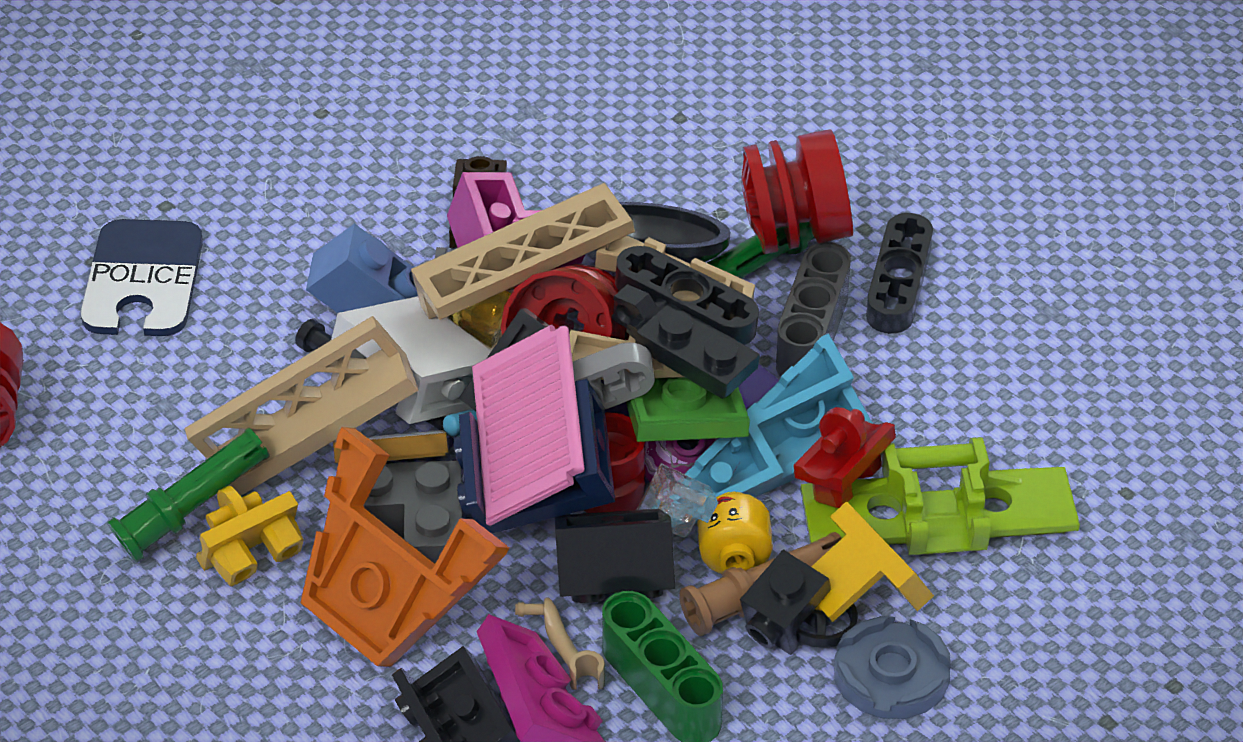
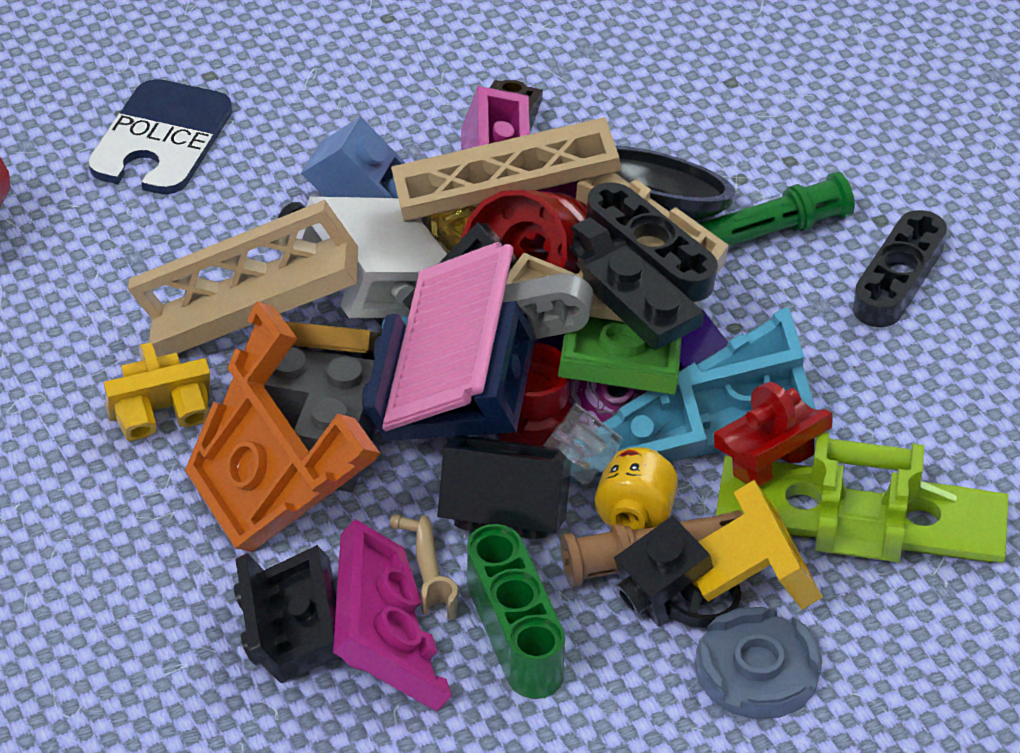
camera: 15 degrees right, 0 degrees up
(166, 509) = (87, 353): green pin -> none
(797, 191) = (805, 164): red wheel -> none
(813, 303) = (800, 277): dark grey beam -> none

